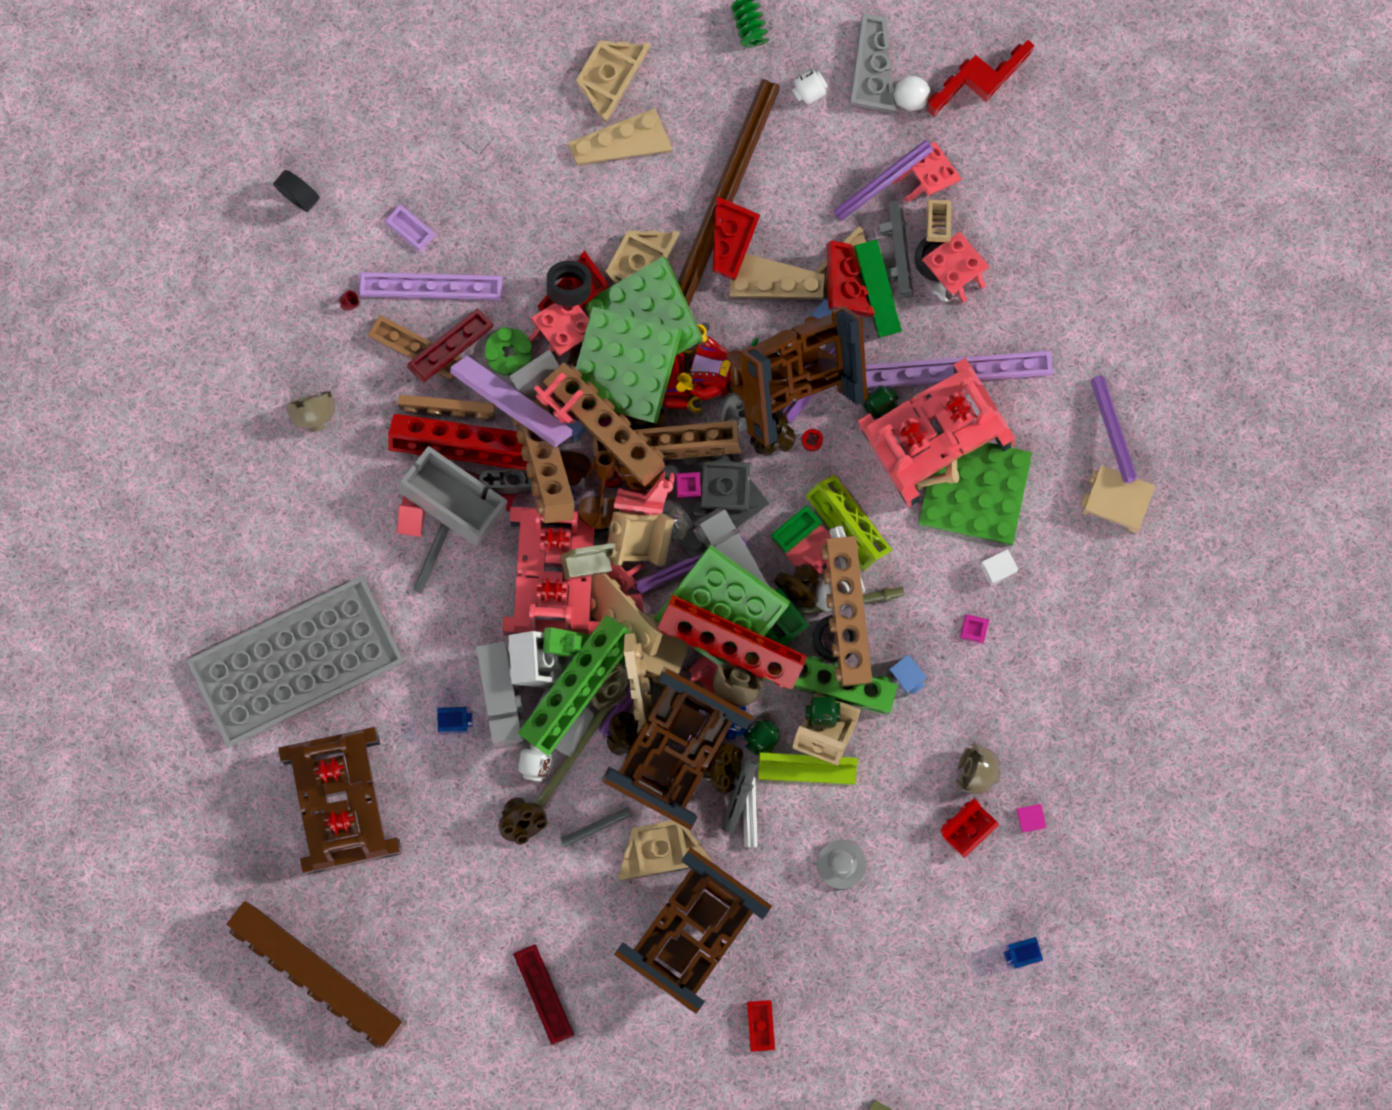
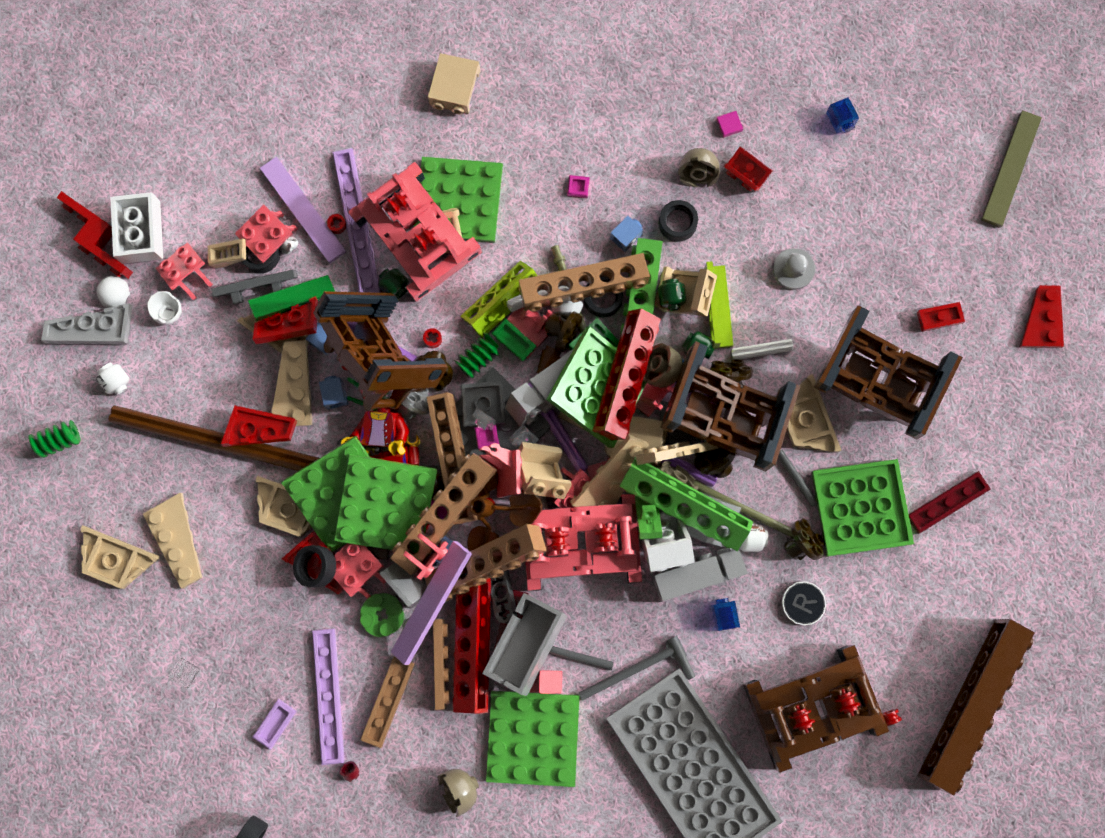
camera: 90 degrees left, 0 degrees up
(317, 883) = (891, 717): none -> red bush
(353, 496) = (533, 739): none -> bright green plate
(425, 659) = (673, 648): none -> dark grey bar
(450, 345) = (383, 669): dark red tile -> none
(454, 810) = (803, 603): none -> black tile
(551, 893) = (862, 507): none -> bright green plate
(587, 561) = (573, 510): panel -> none
(704, 481) = (483, 420): none -> clear plate
(739, 796) = (731, 351): dark grey pin -> none
(762, 323) = (333, 392): none -> medium blue brick
(768, 565) = (548, 357): none -> reddish brown cone
(782, 486) = (477, 355): none -> green piece
(882, 141) = (159, 303): none -> white hair
(883, 180) = (193, 302): medium lavender axle -> none
(916, 719) = (678, 205): none -> black tyre
(965, 340) = (330, 222): none -> red bush
(981, 124) = (136, 228): none -> white brick
(984, 311) = (303, 210): none -> lavender tile
(999, 567) = (524, 170): white panel -> none
(1113, 429) = (395, 91): medium lavender axle -> none

